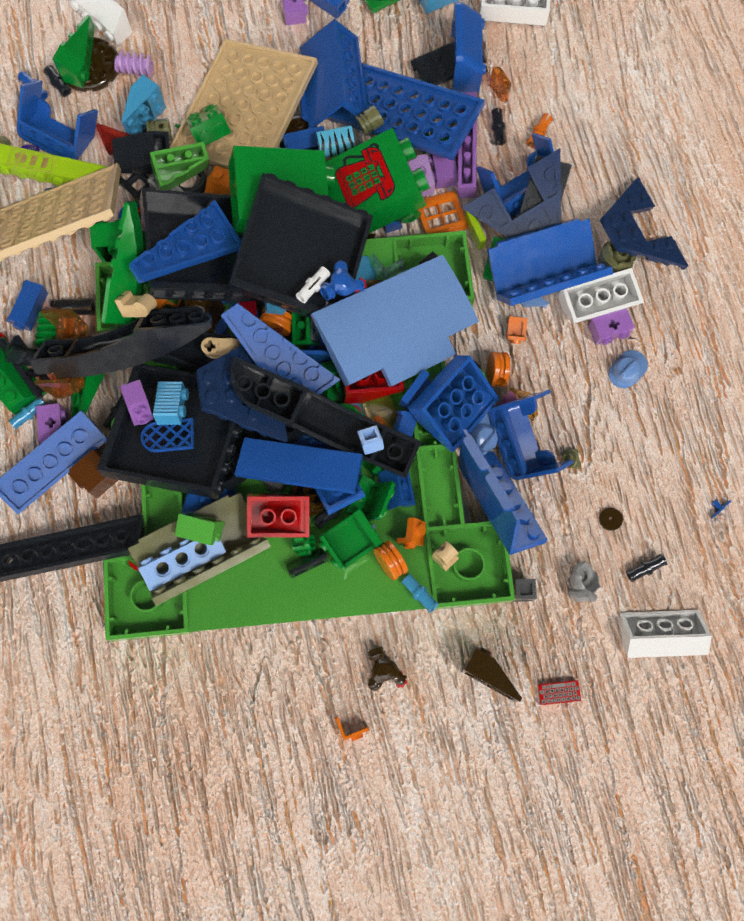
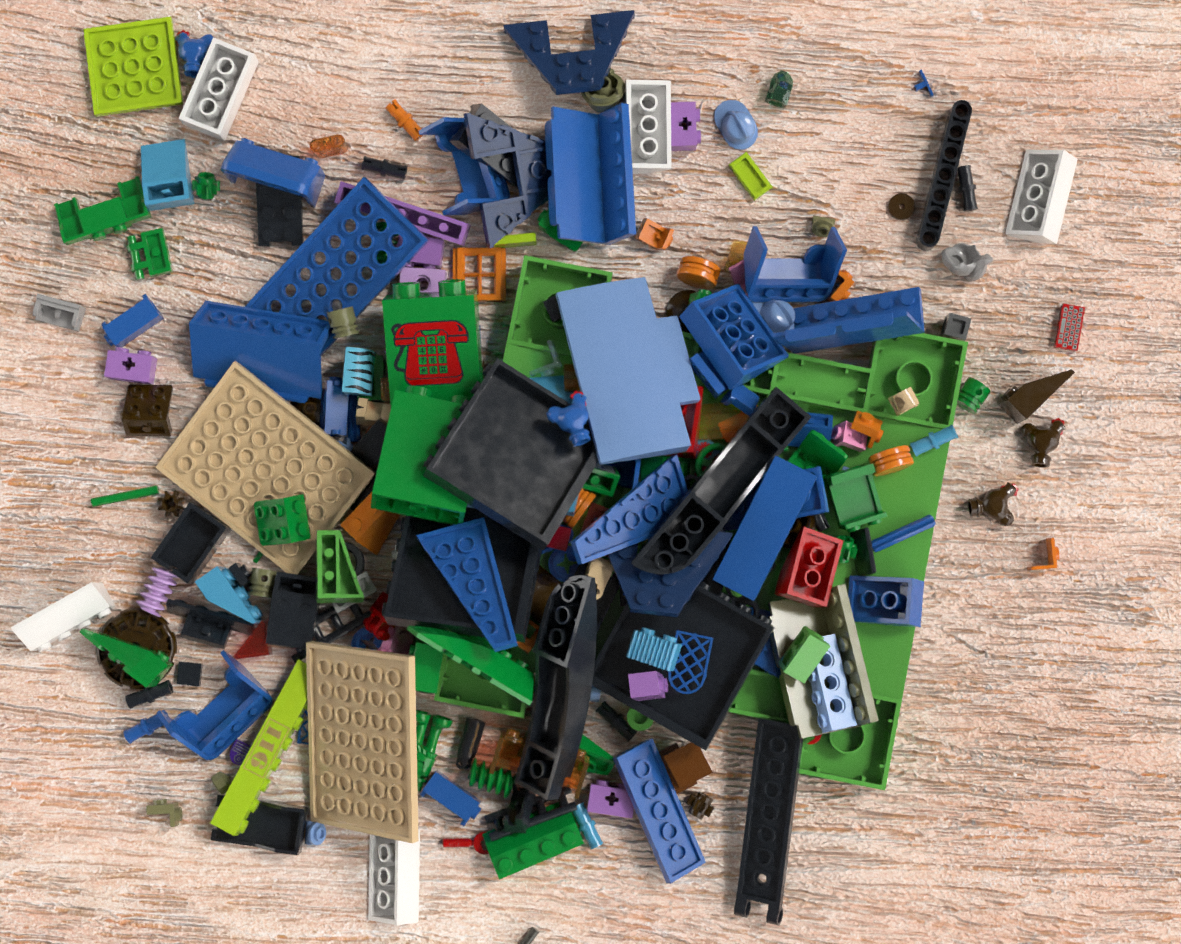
camera: 70 degrees left, 10 degrees up
(54, 274) = (426, 754): none -> green piece
(63, 495) = (700, 805): none -> dark brown gear
(79, 103) = (189, 673): none -> black tile
(115, 100) = (207, 625): none -> black bracket
(135, 305) = (527, 659): tan leg -> none
(161, 112) = (241, 573): none -> black plate
(175, 72) = (191, 543): none -> black piece
(199, 28) = (123, 496): none -> green bar
(201, 56) = (168, 497): none -> dark brown gear
(264, 20) = (147, 410): none -> dark brown bracket
(268, 592) = (886, 600): none -> blue slope
(321, 275) = (568, 451): white pin -> none
(332, 591) = (903, 533): none -> blue axle
(370, 440) = (759, 441): light blue slope -> none
(399, 521) = (844, 435): none -> bright pink bracket
(441, 14) = (205, 185): none -> green gear
(452, 697) = (1043, 441): none -> dark brown animal
(467, 619) = (972, 395): none -> green piece
(527, 489) = (842, 292): none -> orange bracket
(590, 391) = (750, 176): none -> lime tile
(658, 540) = (949, 166): none -> black beam
(669, 393) = (779, 89): none -> clear green rock

